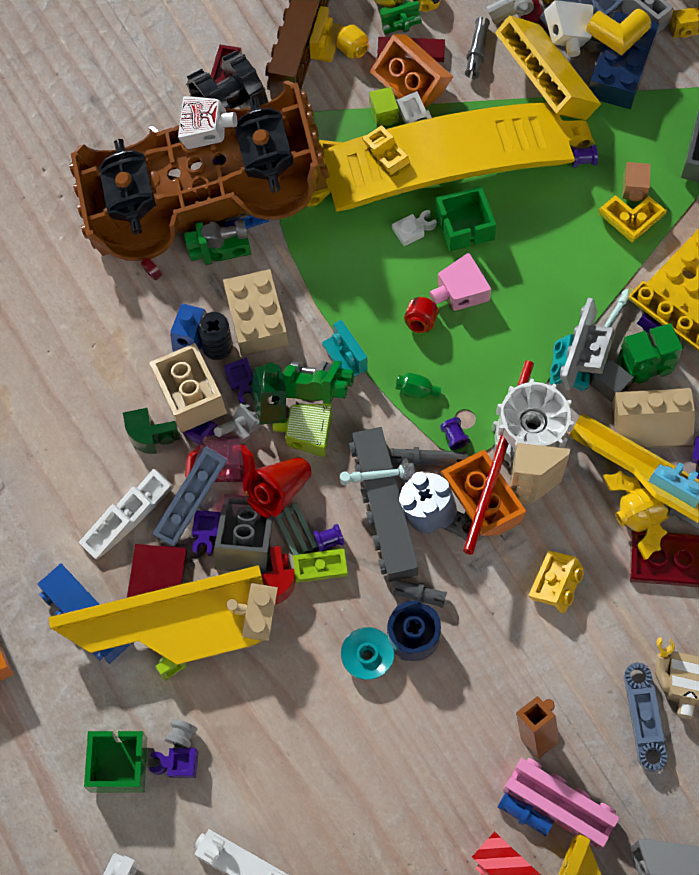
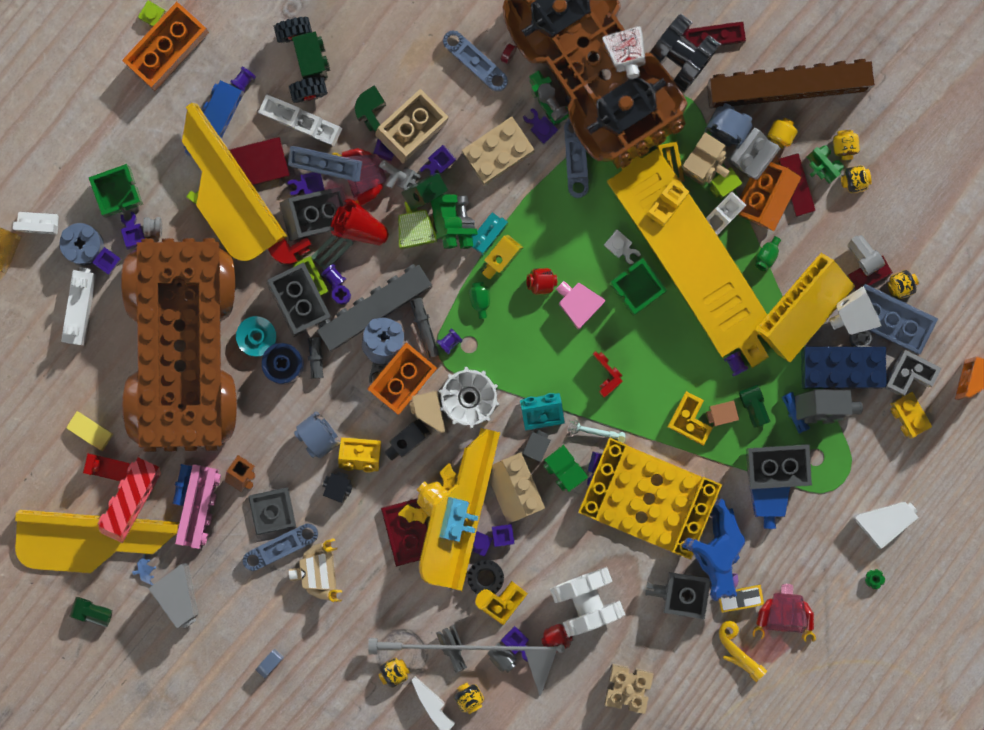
camera: 70 degrees right, 20 degrees up
(46, 559) = (243, 79): none -> dark purple bush
(55, 473) = (310, 58): none -> brick
(143, 305) = (475, 61): none -> sand blue plate
(157, 819) = (71, 238): none -> sand blue brick
(186, 327) = (463, 106): blue torso -> none
(200, 807) = (106, 261): none -> dark purple tile
(215, 335) = (457, 124): black piece -> none
(246, 264) = (542, 128): none -> dark purple plate
(257, 612) = (251, 248): tan plate -> none
(296, 239) = (575, 161): none -> sand blue plate
(324, 36) = (779, 108): yellow bracket -> none
(325, 82) = (729, 126): none -> sand blue brick
(341, 585) = (298, 299): none -> dark grey slope
(350, 110) = (705, 160): none -> tan brick
(359, 541) = (346, 299): none -> dark purple bush
(362, 70) = (754, 154): none -> light grey bracket
(376, 342) = (507, 249): none -> yellow torso
(405, 472) = (400, 315): light aqua piece -> none
(427, 745) = (165, 285): none -> dark orange piece
(476, 55) = (807, 242): dark grey pin -> none
(476, 93) = (768, 254): none -> green plant
(492, 477) = (416, 381): red piece -> none
(518, 618) = (317, 435): none -> sand blue brick
(556, 275) = (608, 385): none -> red bracket
(557, 505) = (413, 435): none -> black torso
(589, 346) = (553, 420): light grey bracket -> none
(589, 620) = (337, 486): none -> black brick
(594, 712) = (272, 511): none -> dark grey tile
(619, 36) = (854, 358): yellow brick -> none
(637, 152) = (753, 401): none -> dark green piece
(656, 119) = (790, 403): none -> blue pin
(661, 81) = (826, 406): none -> dark grey brick

